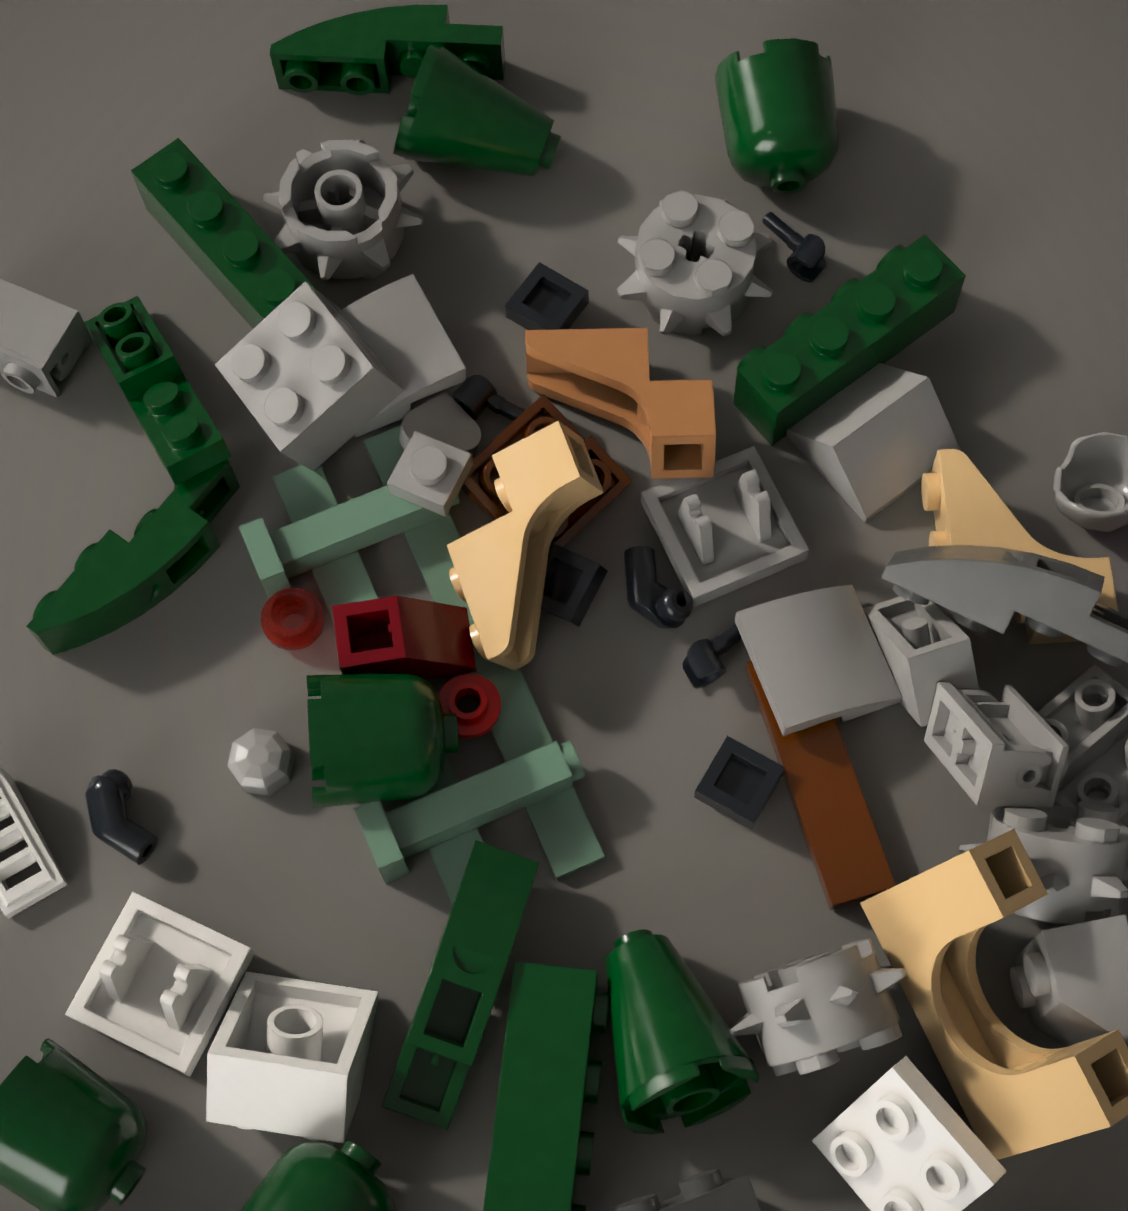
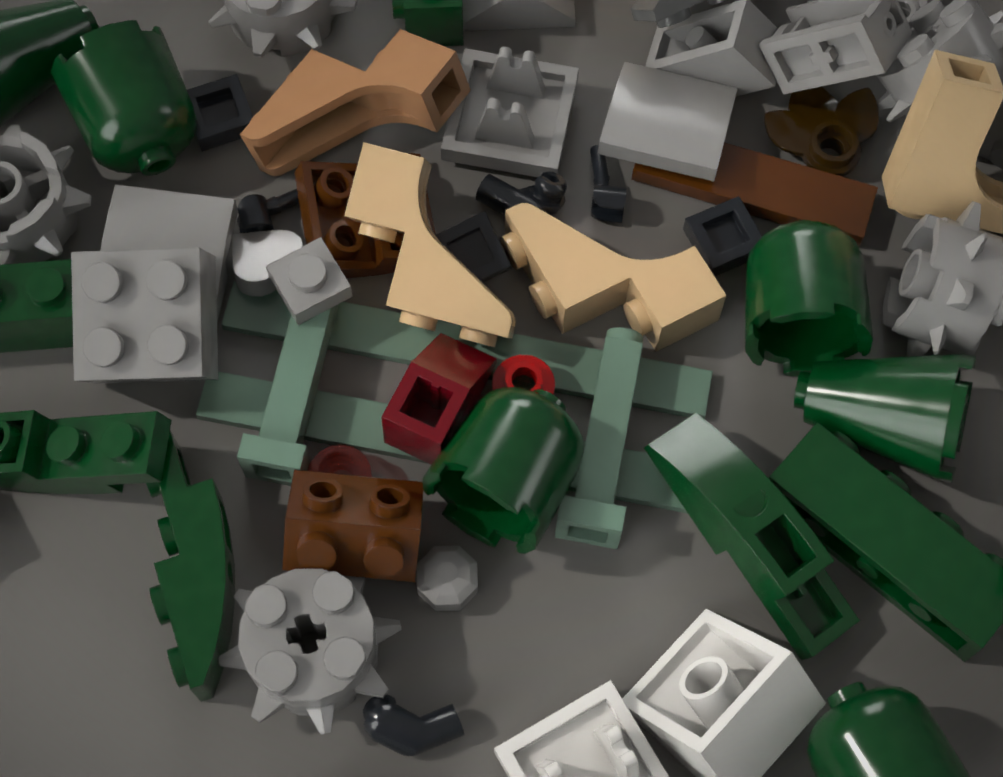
camera: 60 degrees left, 0 degrees up
(108, 662) = (315, 682): none -> light grey brick
(242, 654) = (353, 525): none -> reddish brown brick
(493, 229) = (127, 98): none -> dark green cylinder
(599, 689) = (582, 279): none -> tan arch
(719, 885) = (806, 297): none -> dark green cylinder
(927, 795) = (820, 122): none -> dark brown plate

